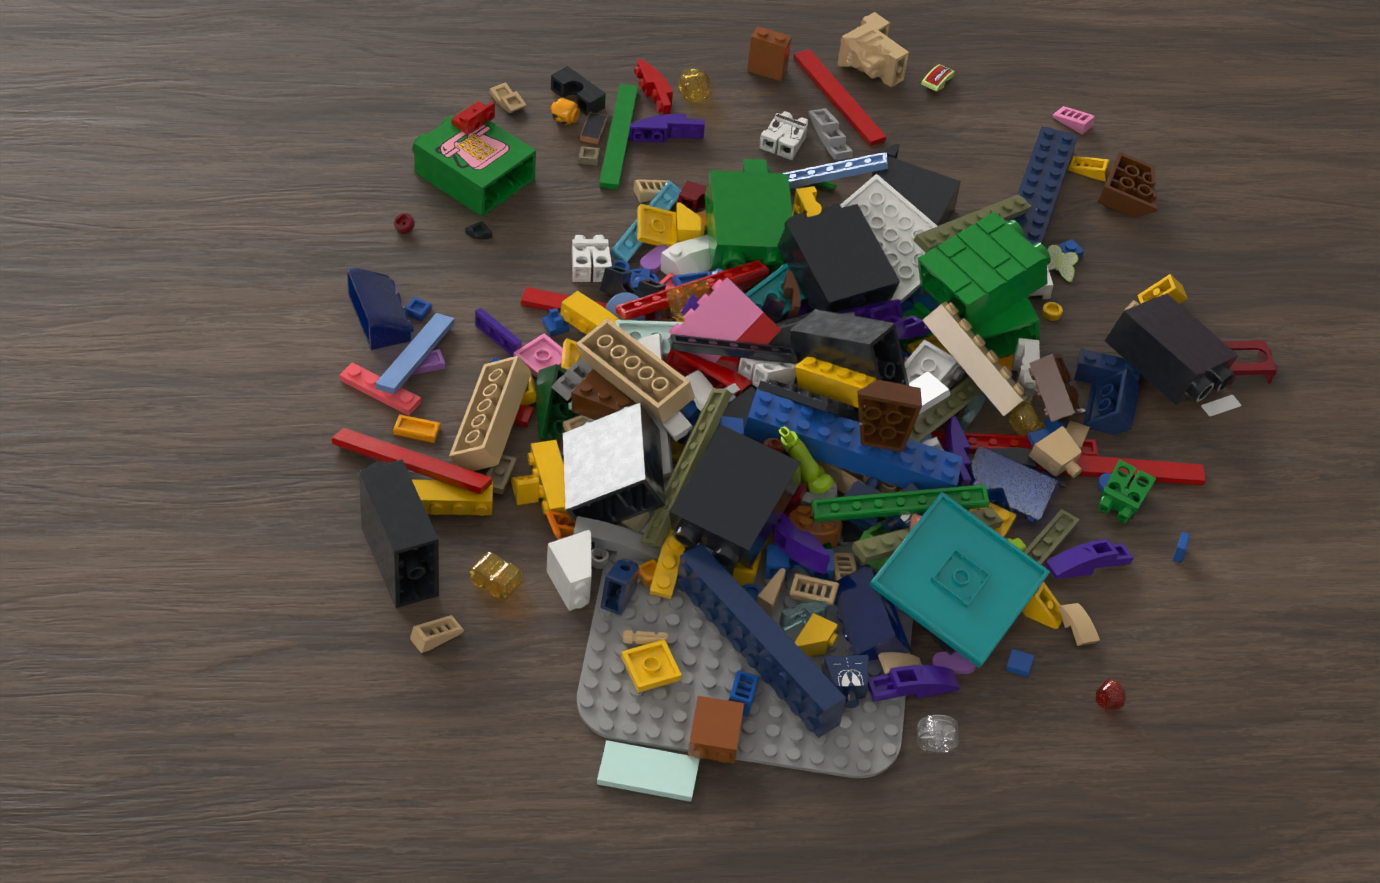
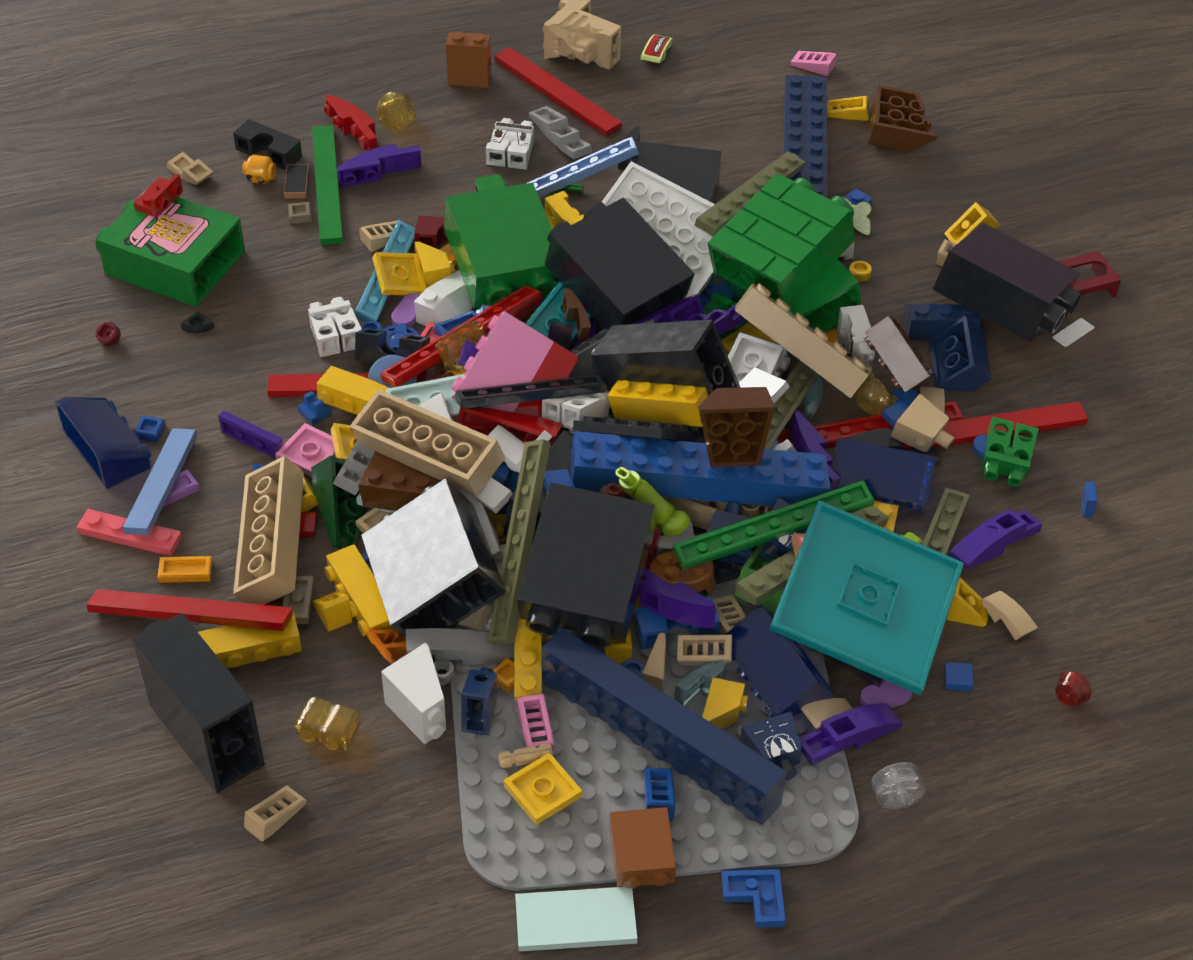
camera: 10 degrees left, 0 degrees up
(660, 598) = (529, 703): none -> bright pink slope
(801, 784) = (759, 887): none -> blue plate

